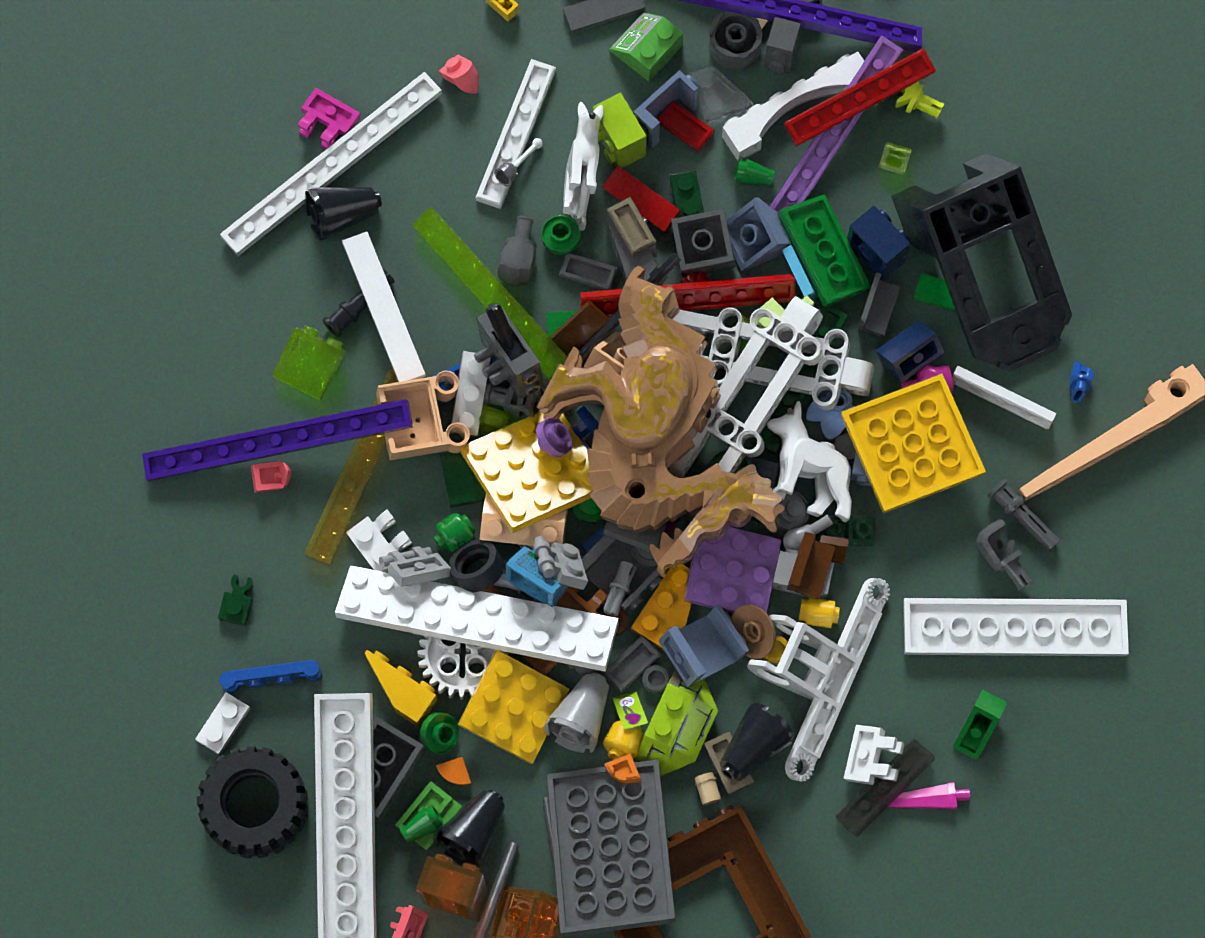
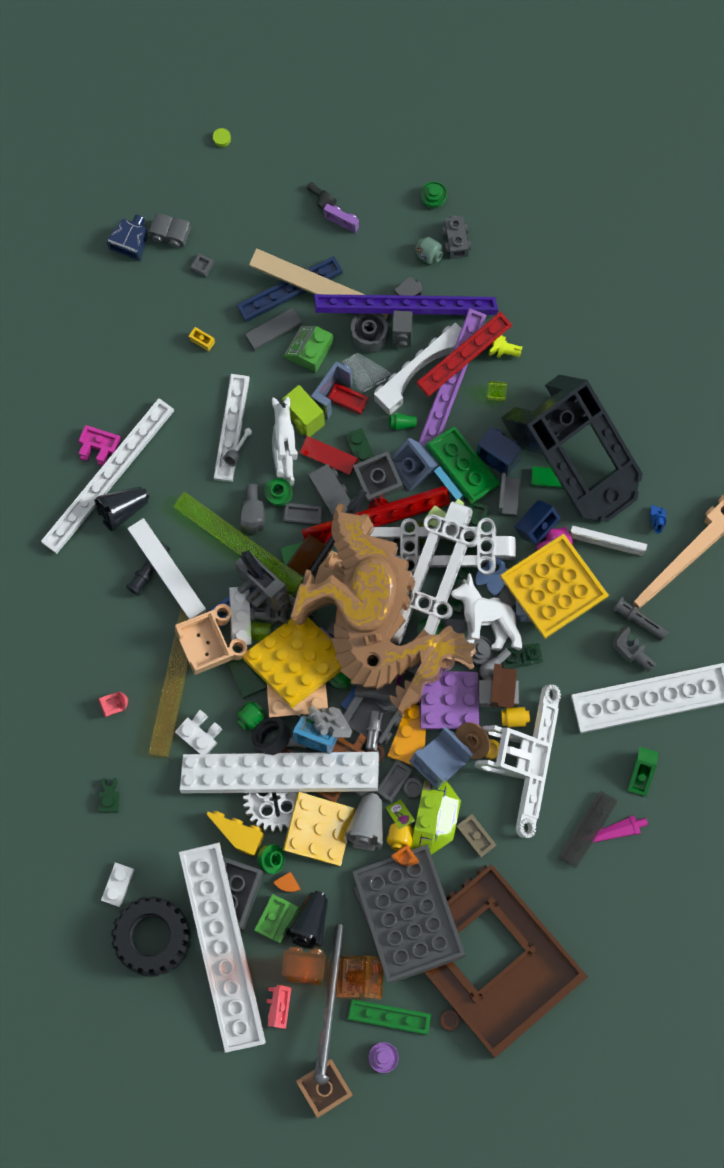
camera: 10 degrees left, 0 degrees up
(277, 440) = (112, 677): dark purple plate -> none
(279, 673) = (152, 841): blue plate -> none
(309, 361) = (123, 617): clear neon green plate -> none
(415, 566) = (228, 745): light grey plate -> none
(422, 824) = (273, 926): green cone -> none
(461, 73) = (184, 394): coral plate -> none
(554, 437) = (306, 635): medium lavender plate -> none
(586, 423) = (325, 620): clear blue tile -> none
(631, 226) = (326, 476): dark tan tile -> none
(707, 788) = (465, 857): tan piece -> none
(755, 742) = (492, 817): black cone -> none
(840, 547) = (520, 667): reddish brown tile -> none
(865, 754) = (569, 809): white plate -> none

